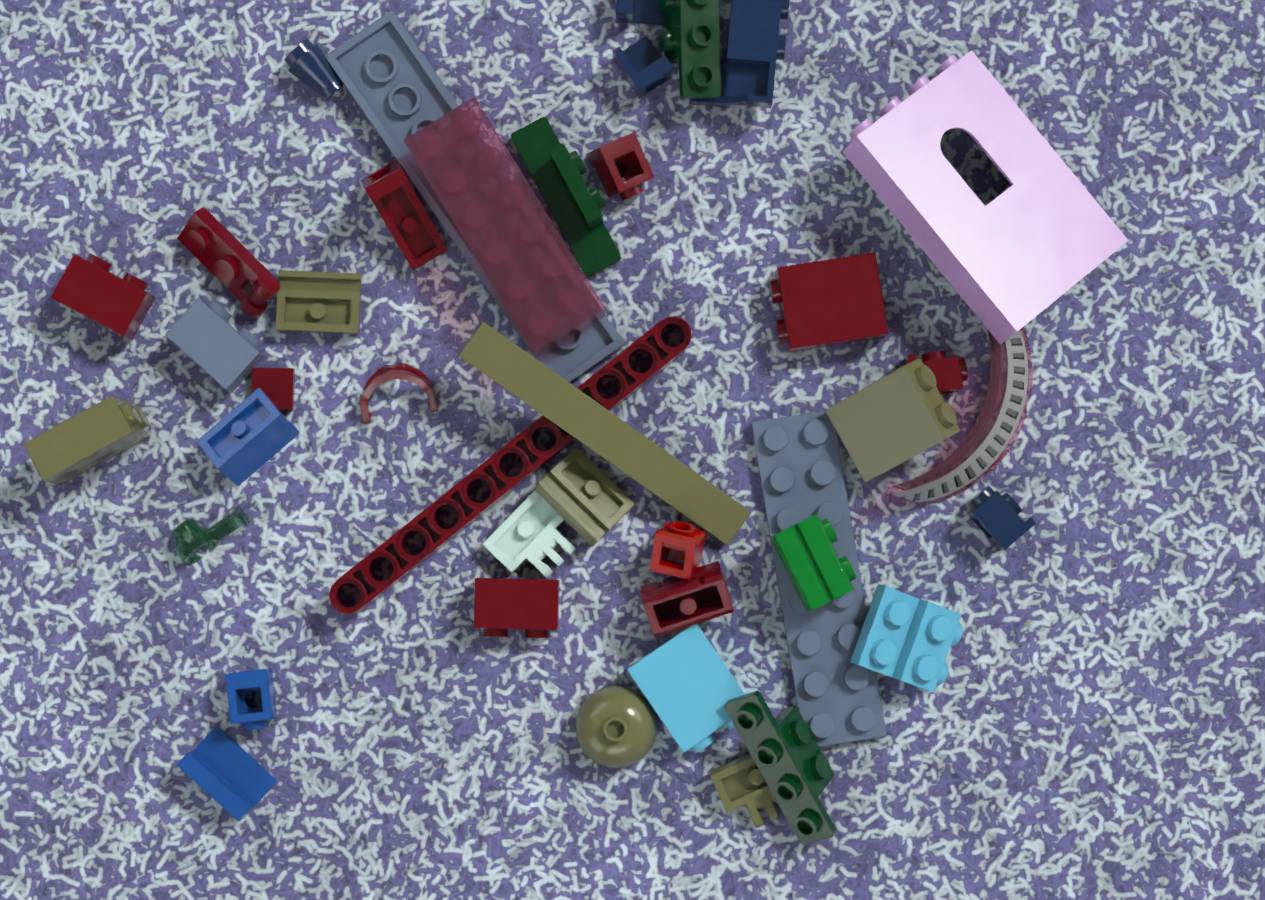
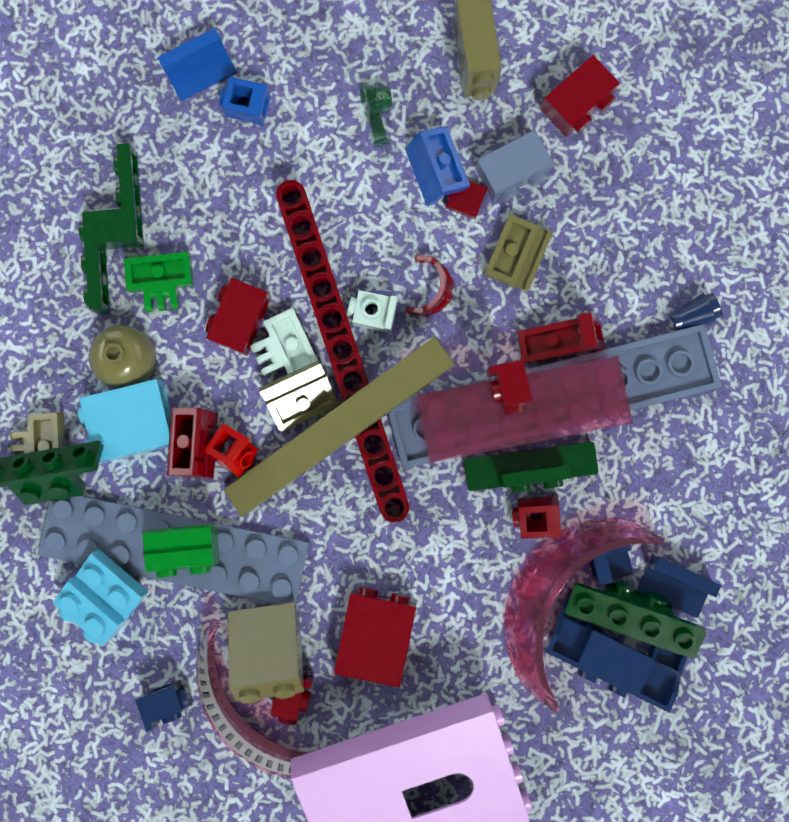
camera: 120 degrees right, 0 degrees up
(229, 262) = (572, 198): dark red plate -> none
(451, 430) = (380, 321): none -> light aqua brick
(467, 799) = (111, 229): none -> dark green bracket
(486, 246) = (510, 386): none -> dark red brick
(504, 719) = (159, 278): none -> green hinge
(694, 136) = (542, 580): none -> clear pink windscreen

